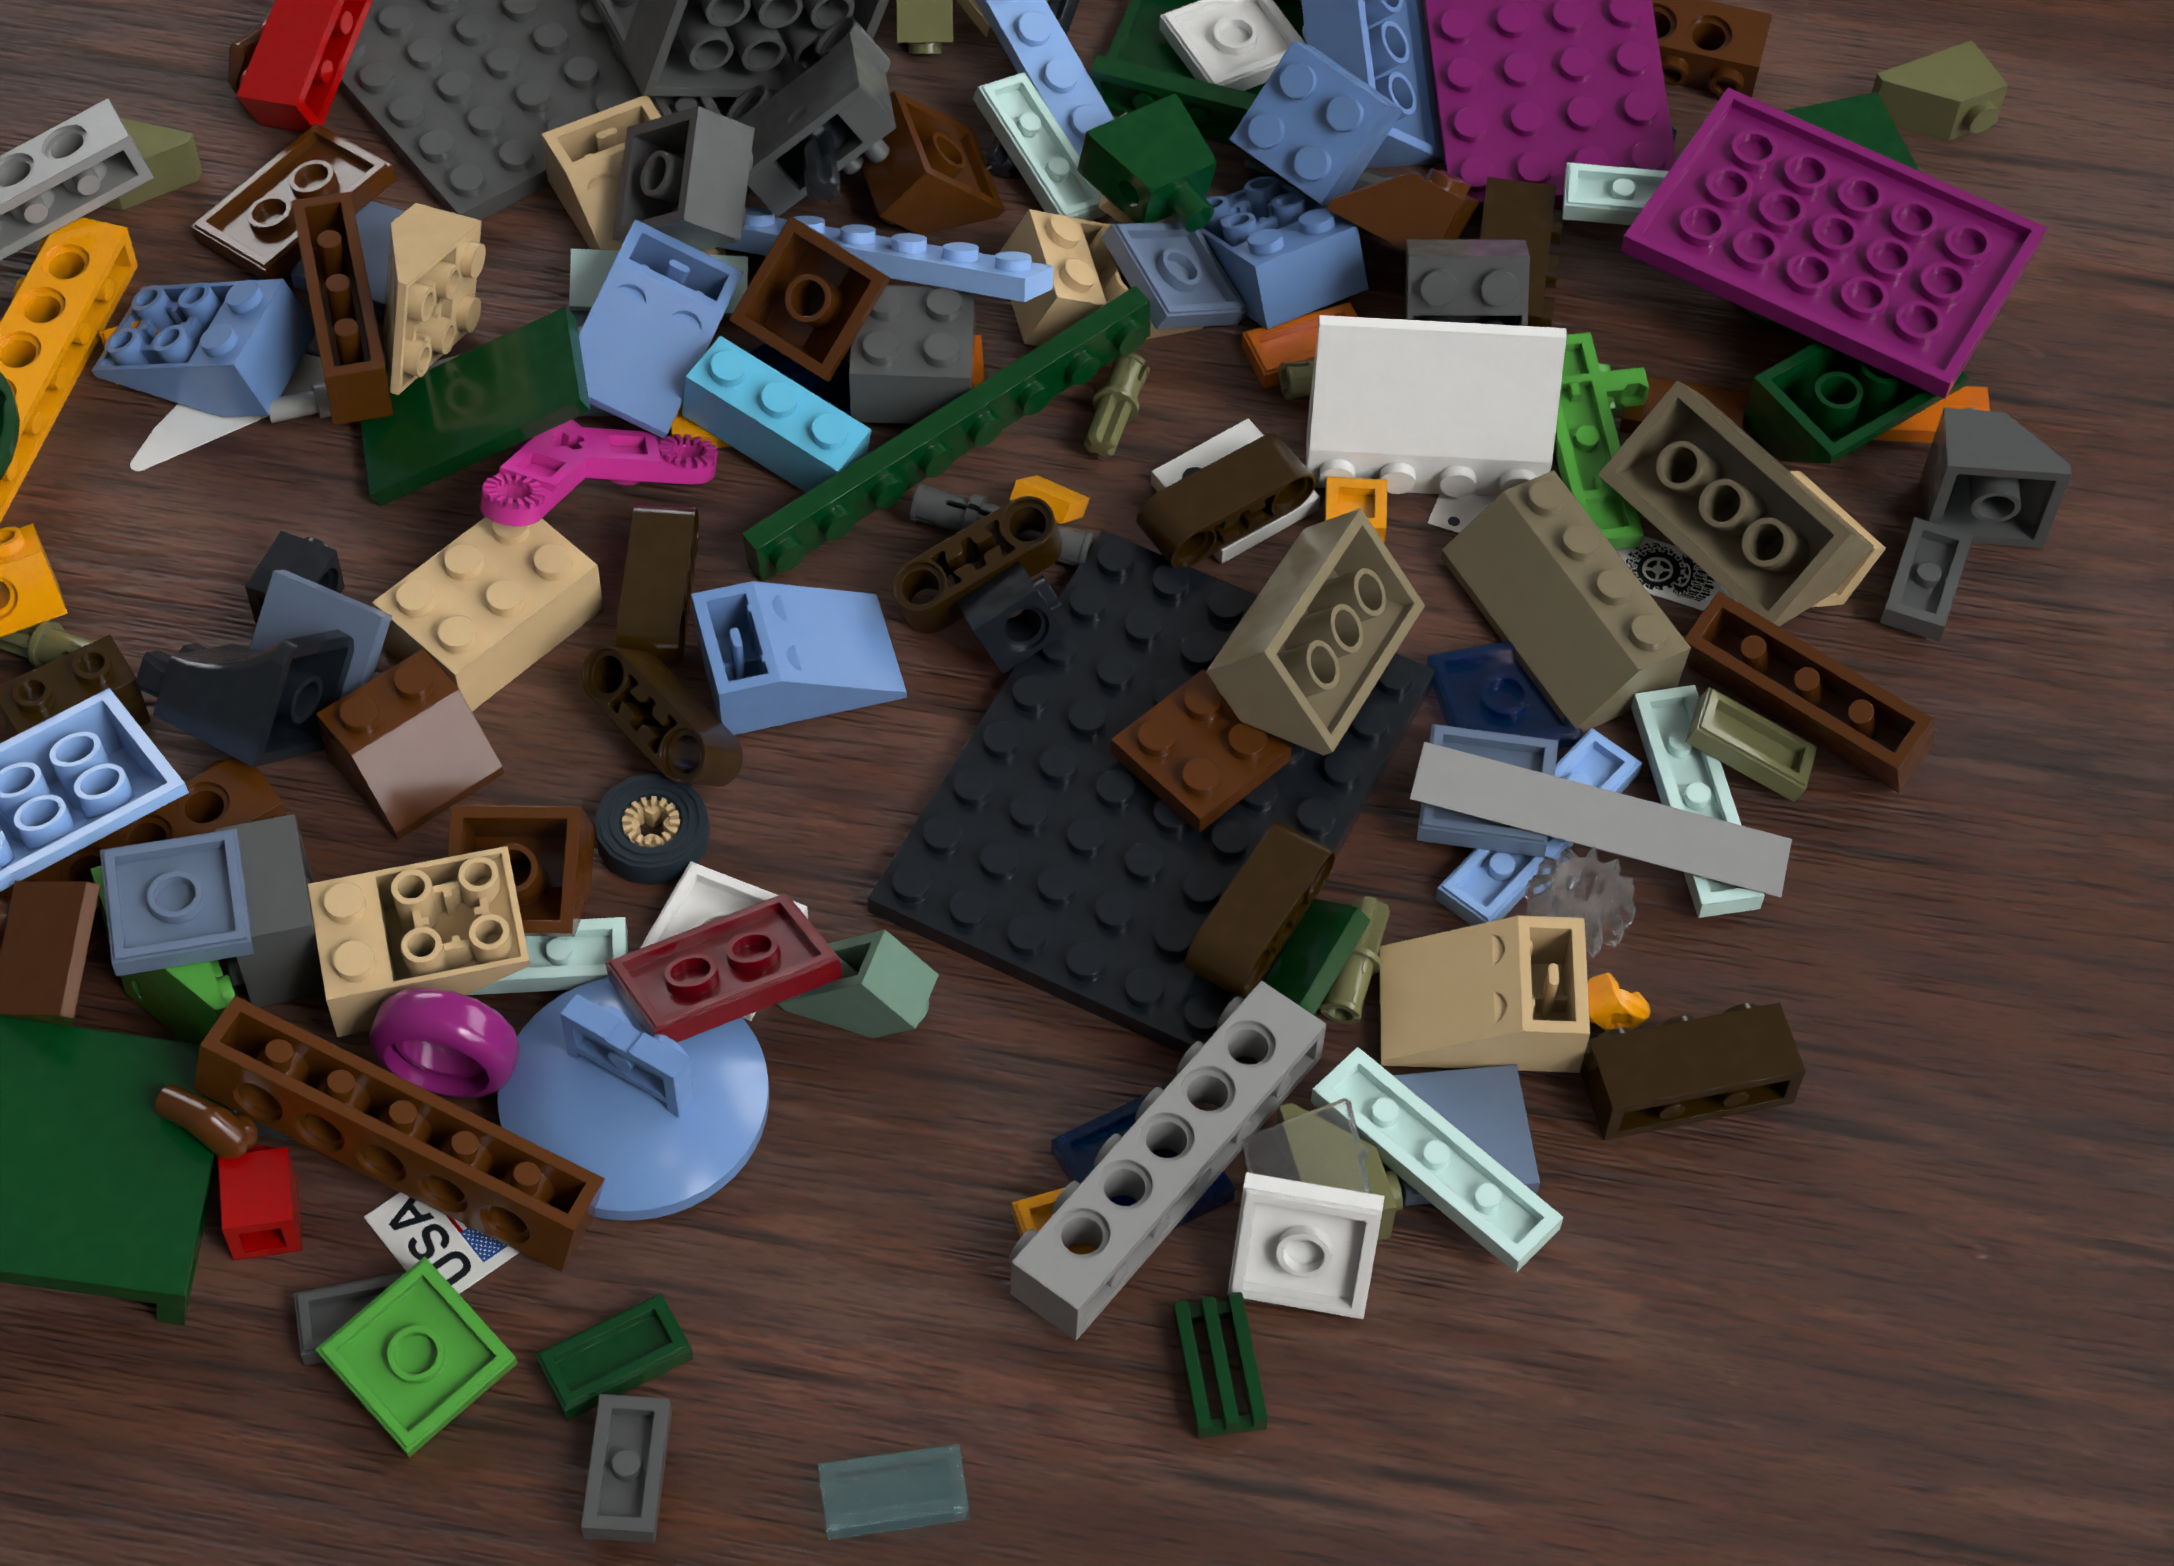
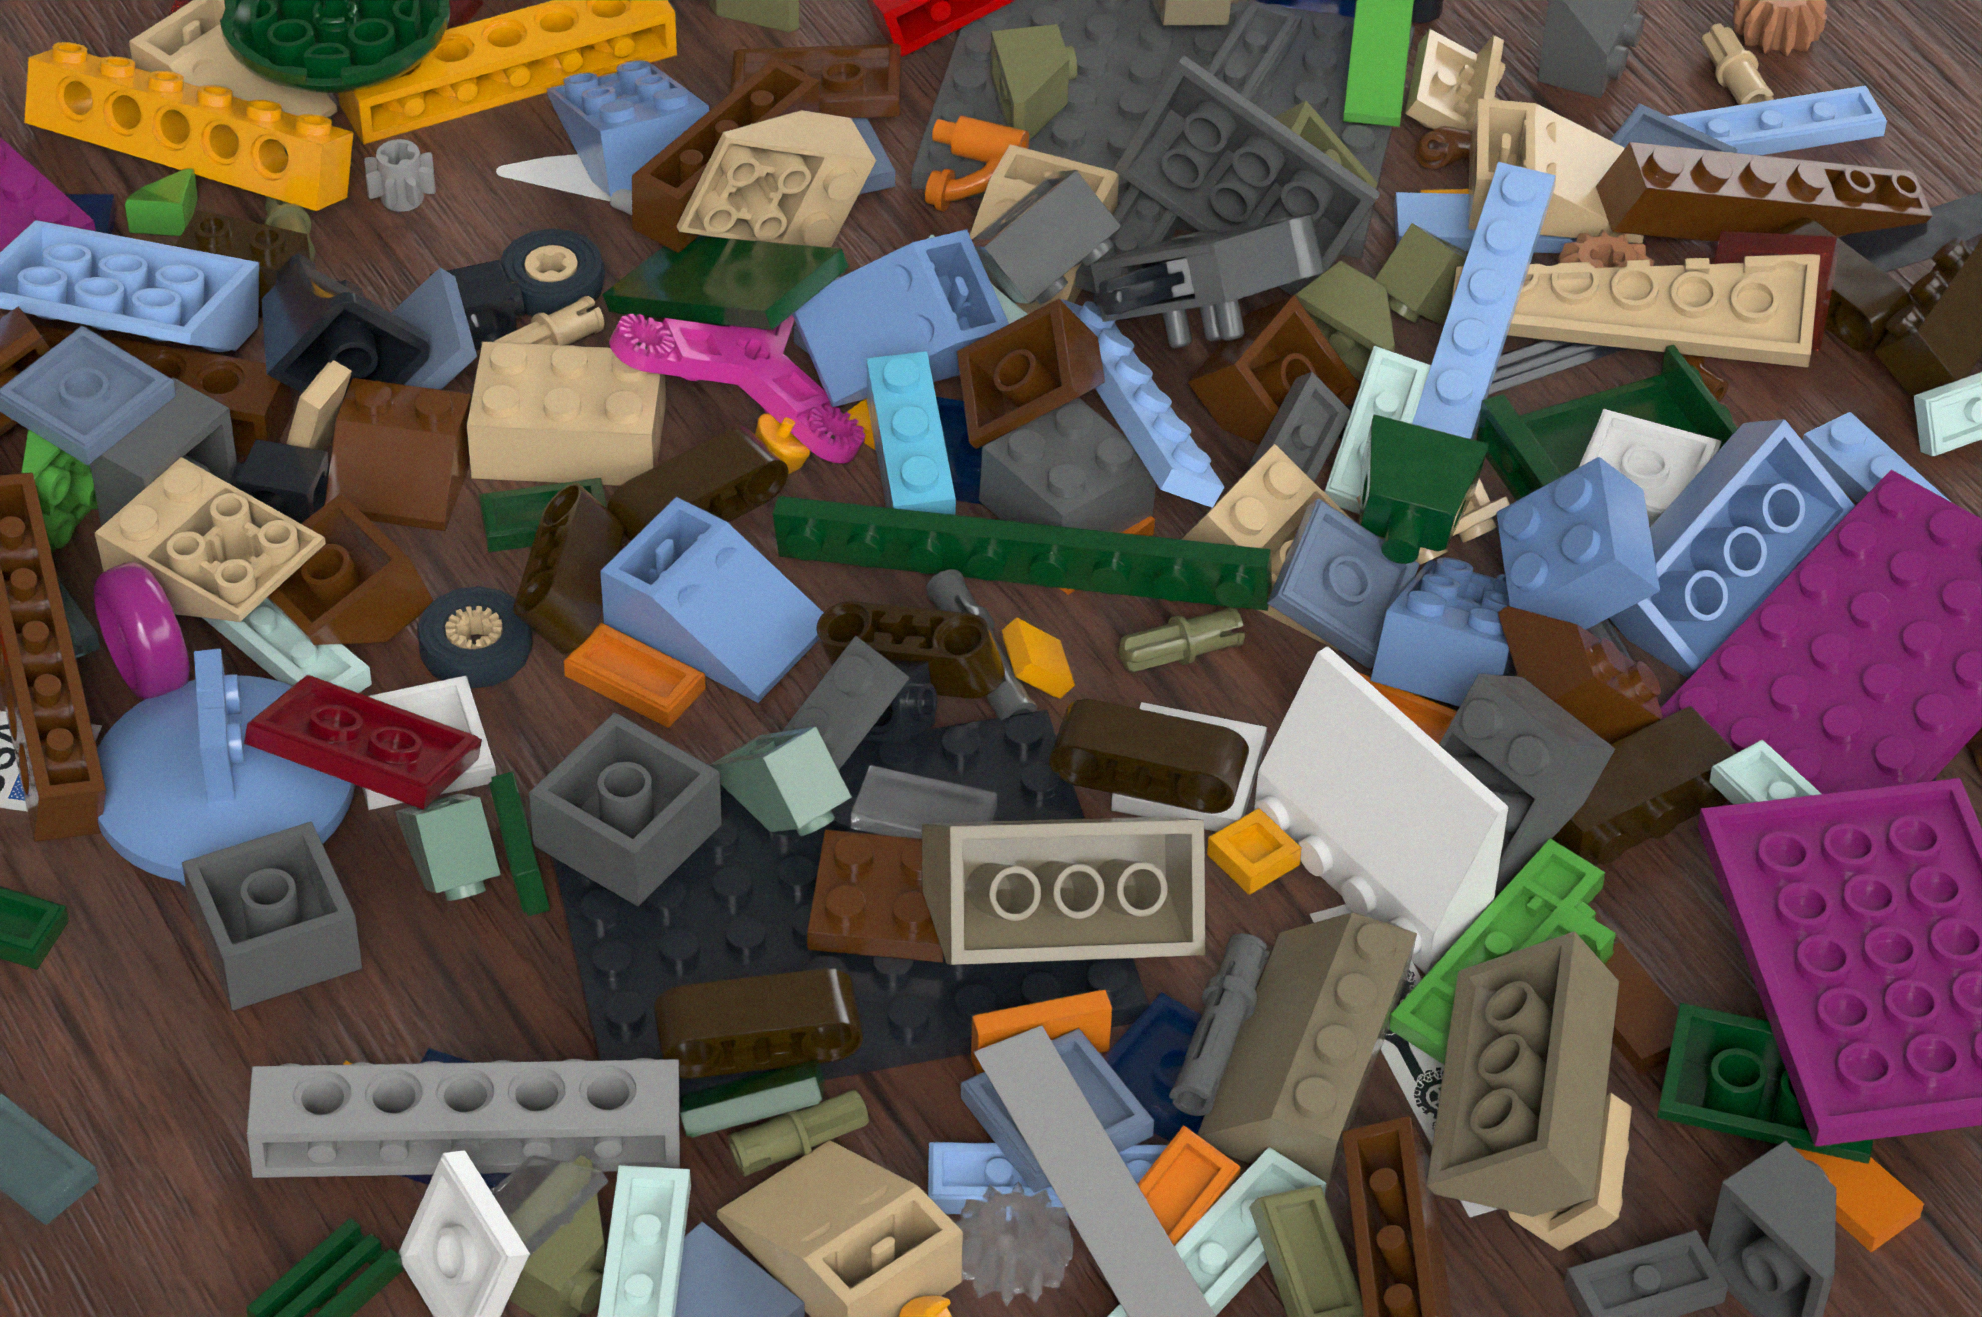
camera: 50 degrees right, 10 degrees down
(82, 531) = (400, 175): none -> light grey gear
(327, 489) = (553, 251): none -> black bush
(329, 771) = (319, 408): none -> tan tile
(356, 839) = (284, 478): none -> black brick
(377, 555) = (561, 326): none -> tan axle
(468, 73) = (1031, 75): none -> olive slope
(498, 150) = (975, 141): none -> orange plant
(555, 703) = (514, 515): none -> dark green tile
(656, 492) = (782, 441): none -> light orange piece
(799, 754) = (635, 675): none -> orange tile
(834, 1152) = (272, 915): none -> dark grey brick
(933, 78) = (1350, 314): none -> olive slope
(939, 950) = (519, 844): none -> dark green tile
(984, 845) = (625, 808): none -> dark grey brick
(999, 183) = (1306, 425): none -> dark grey plate
(1017, 643) = (850, 699): none -> dark grey plate
(1038, 729) = (785, 780): none -> sand green slope
(1141, 668) = (900, 802): none -> clear tile
(1405, 750) = (1086, 1011): none -> orange tile
(1463, 592) = (1228, 1003): none -> dark grey pin
(1625, 760) = (1186, 1182): none -> orange tile

